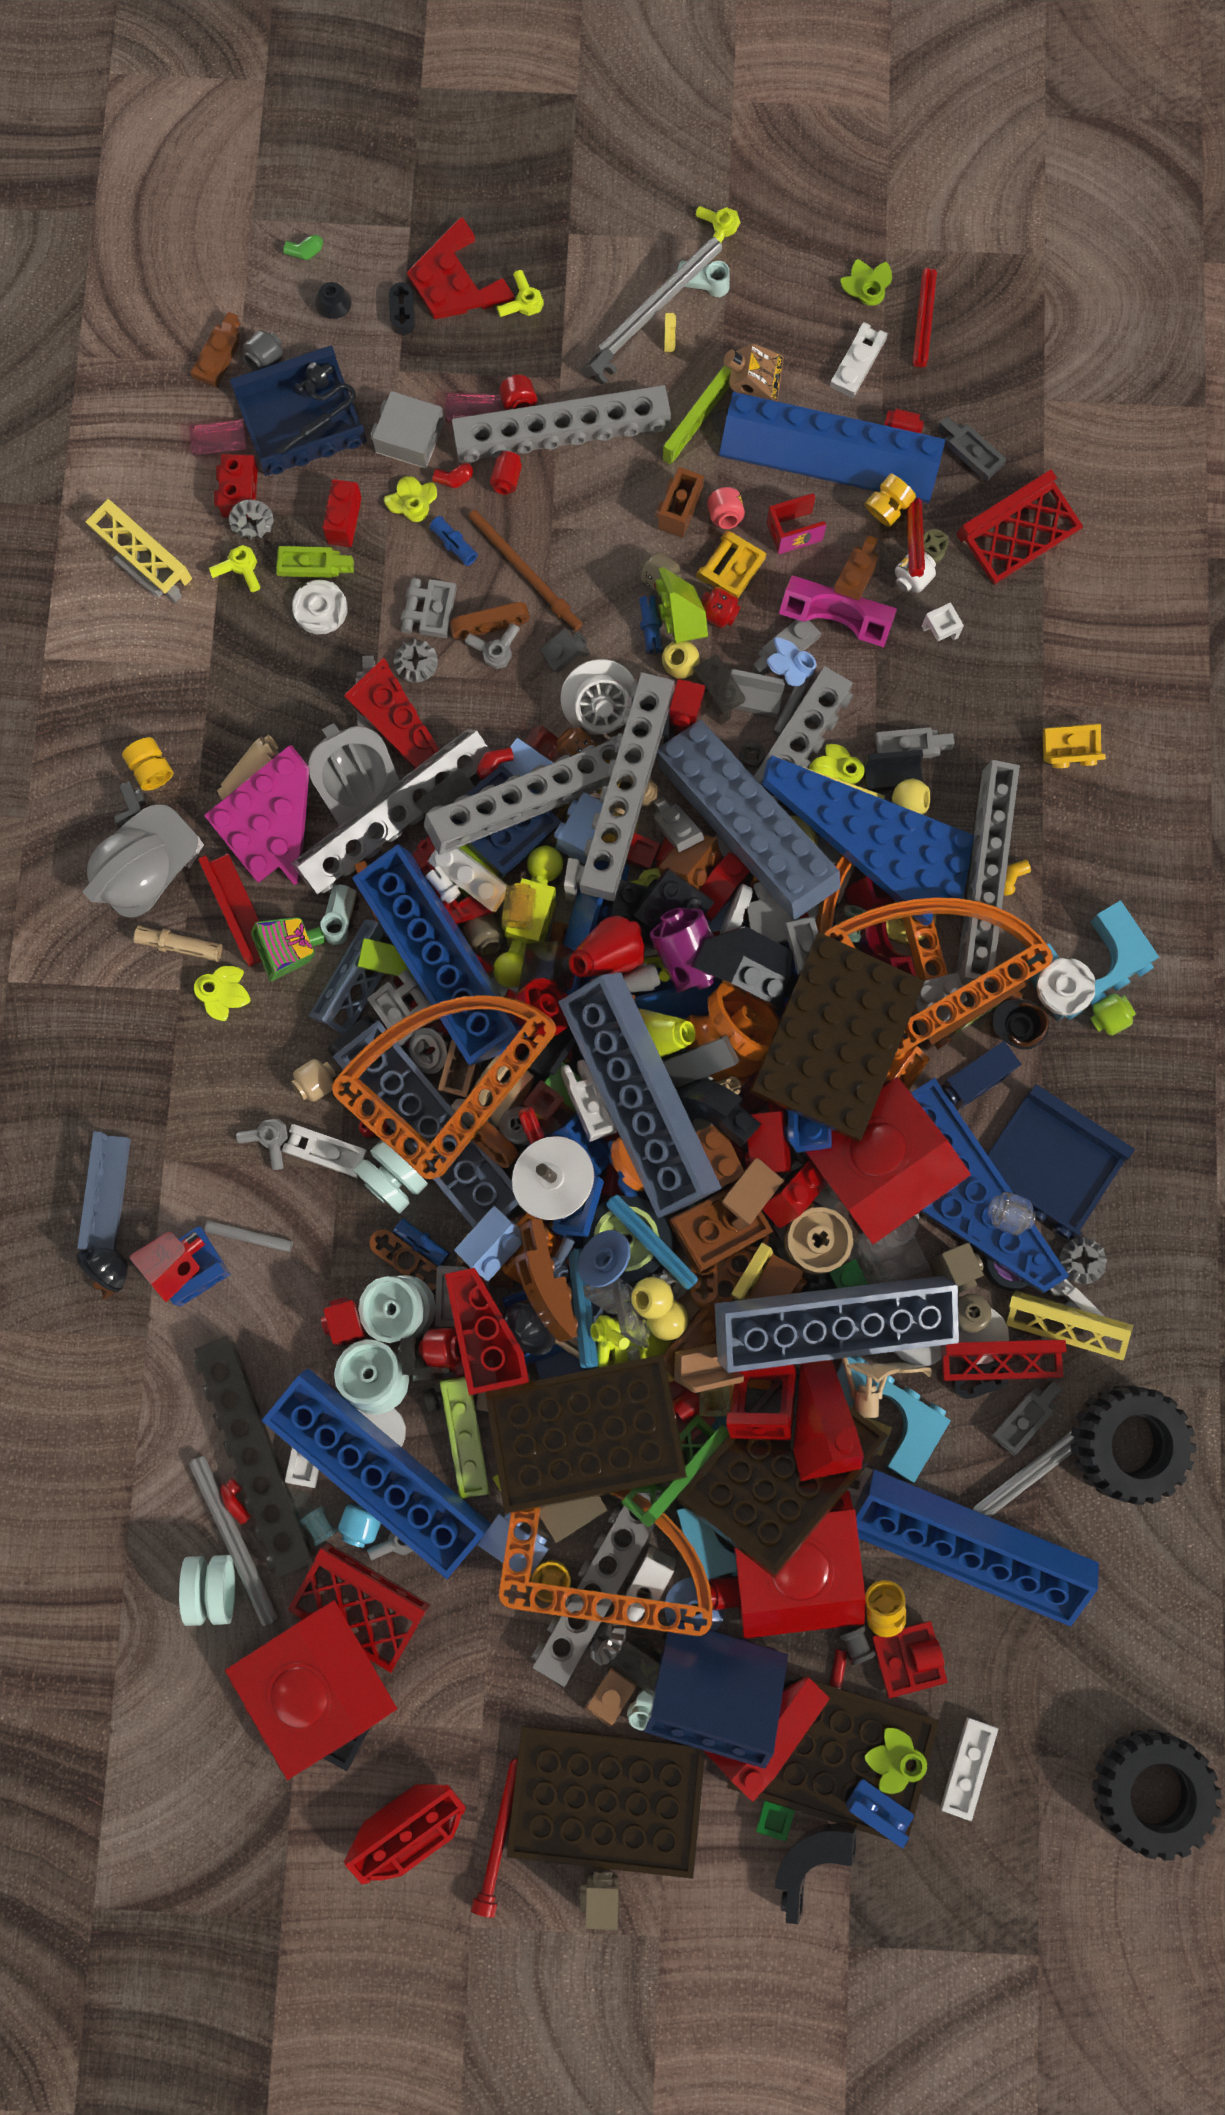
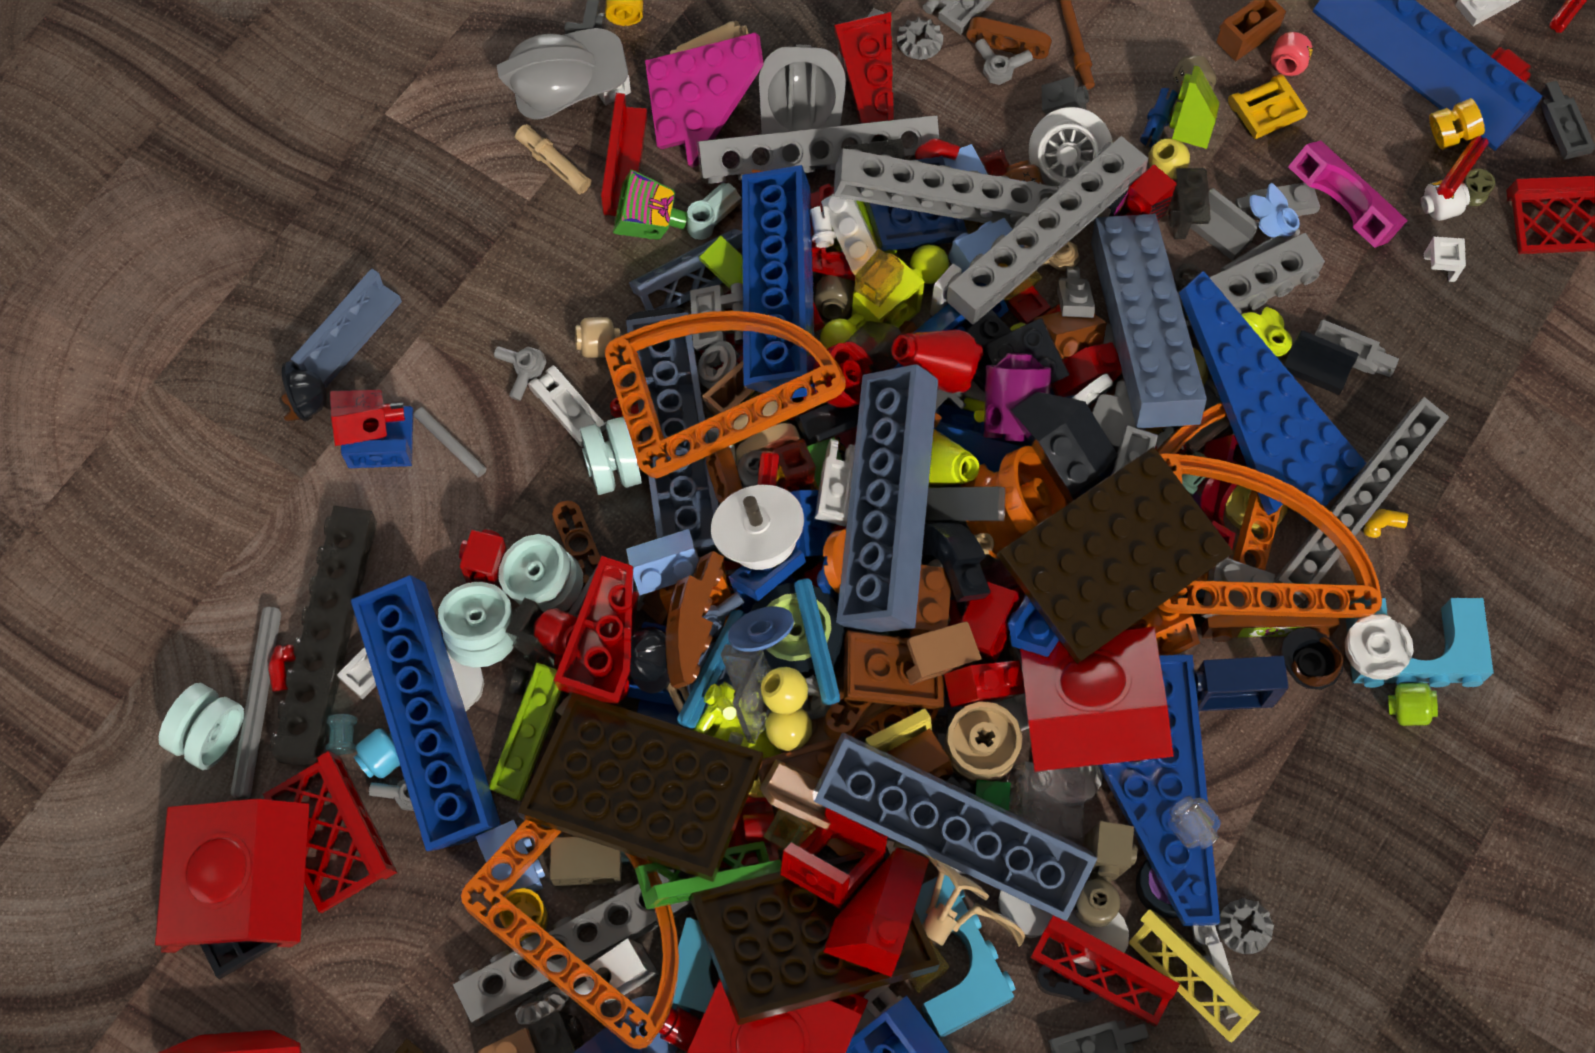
camera: 30 degrees right, 10 degrees down
(226, 991) = (567, 223): neon yellow plate -> none
(421, 1242) = (601, 532): blue pin -> none
(642, 978) = (956, 407): light grey cone -> none
(720, 607) = (1233, 134): red head -> none
(790, 510) = (1347, 112): red piece -> none
(858, 570) = (1388, 168): dark orange hinge -> none
(912, 795) = (1325, 392): light yellow piece -> none
(1057, 1160) = (1275, 813): dark blue panel -> none
(1072, 744) = (1516, 432): yellow bracket -> none

